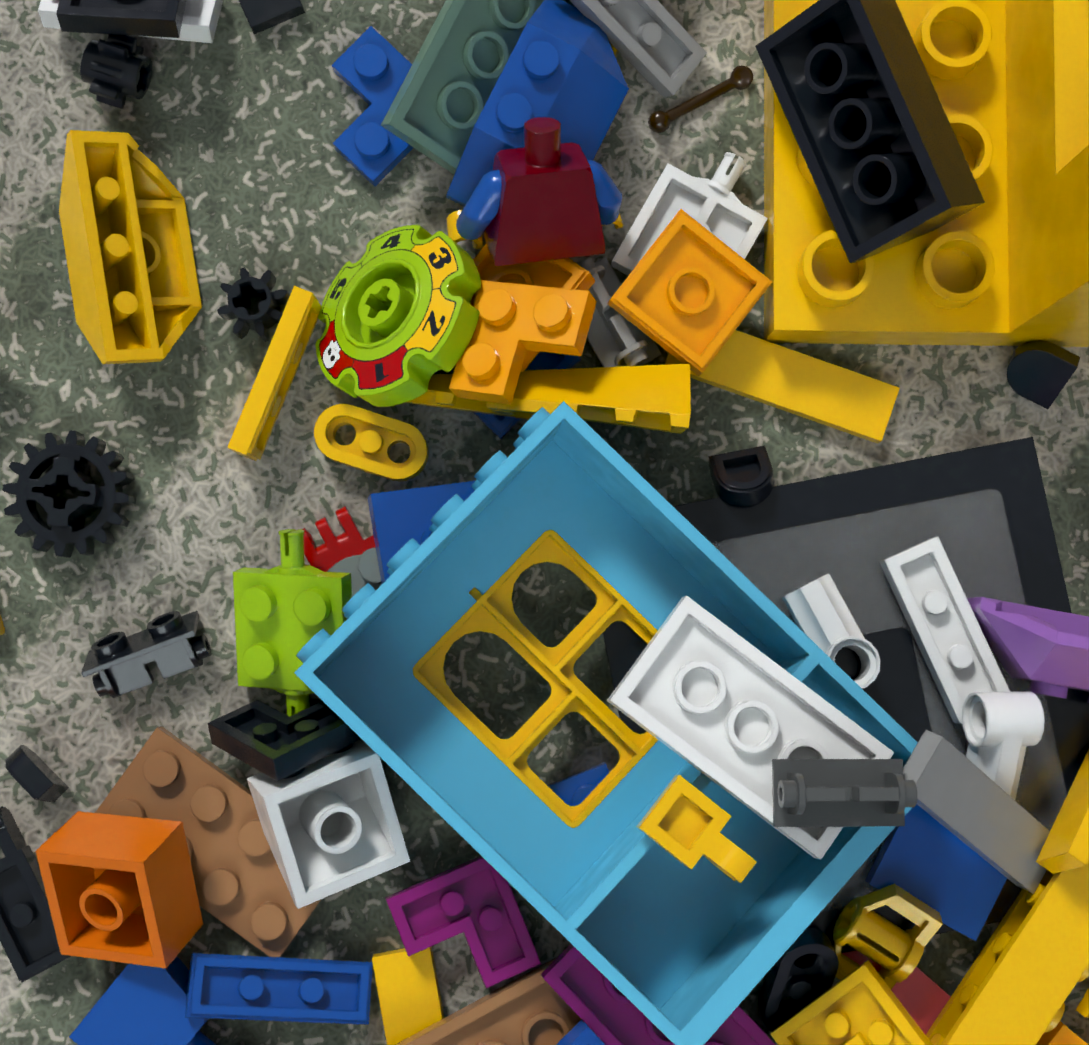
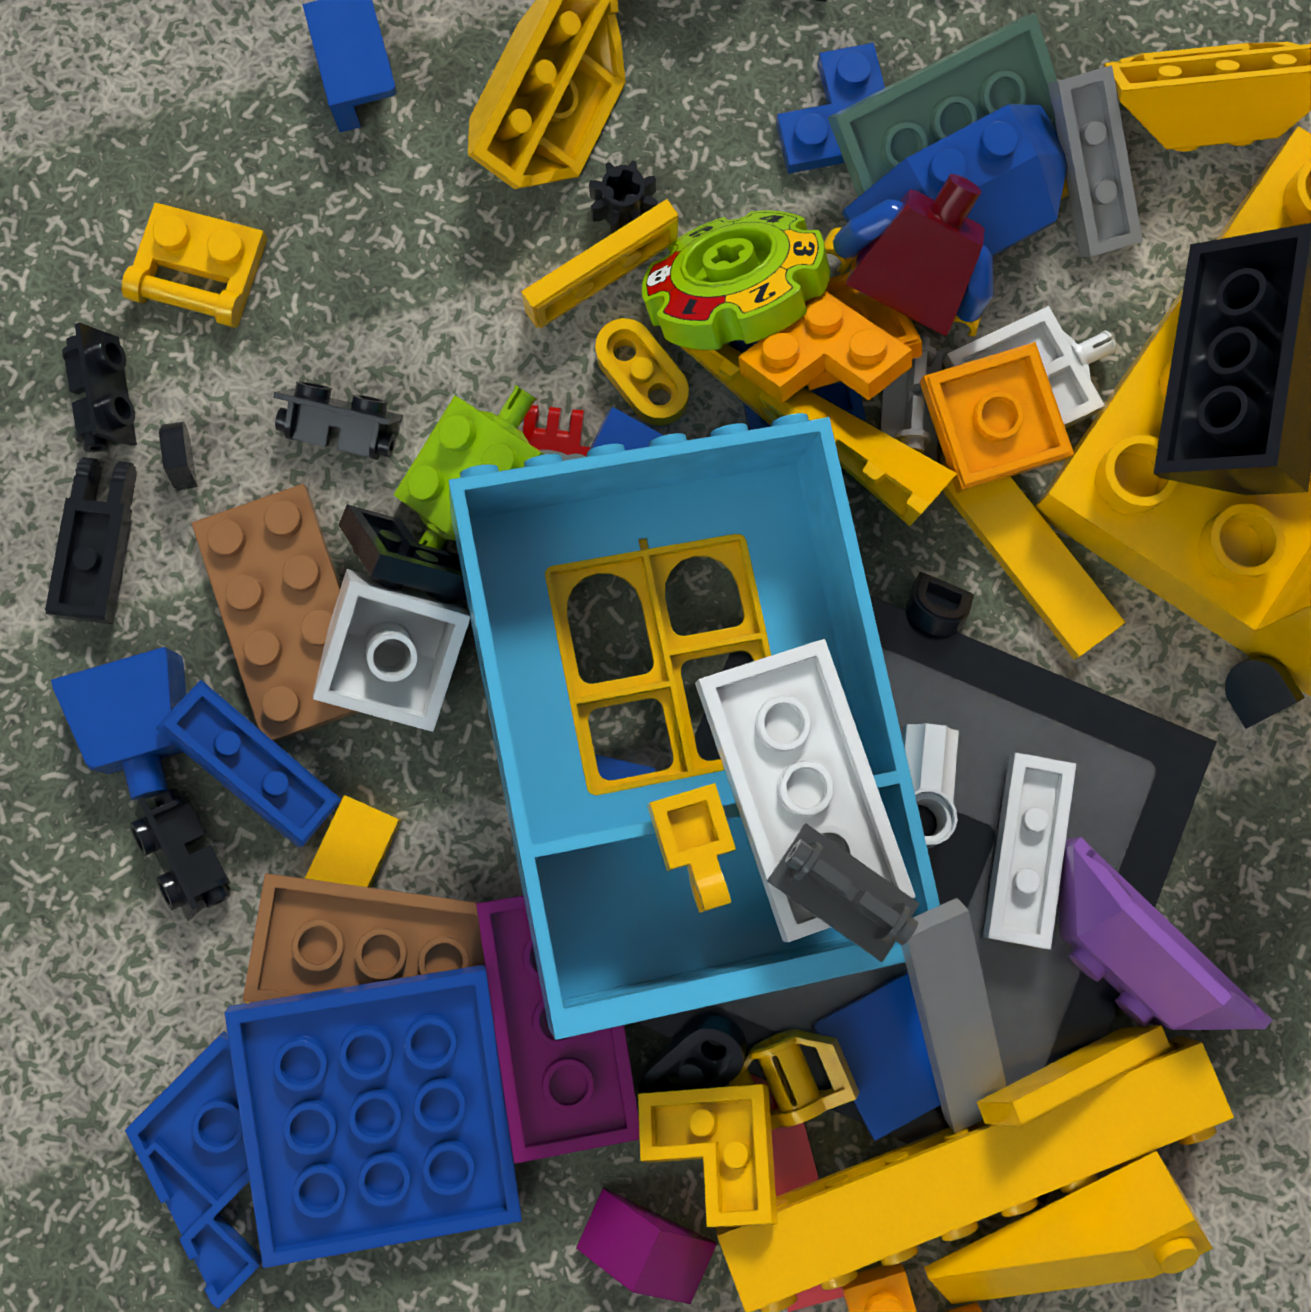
camera: 35 degrees right, 5 degrees down
(68, 517) = (363, 273): black gear -> none
(120, 888) = (180, 585): orange brick -> none
(470, 902) = (463, 806): magenta plate -> none
(740, 79) = (1157, 282): dark brown hinge -> none
(999, 731) = (1021, 964): white piece -> none

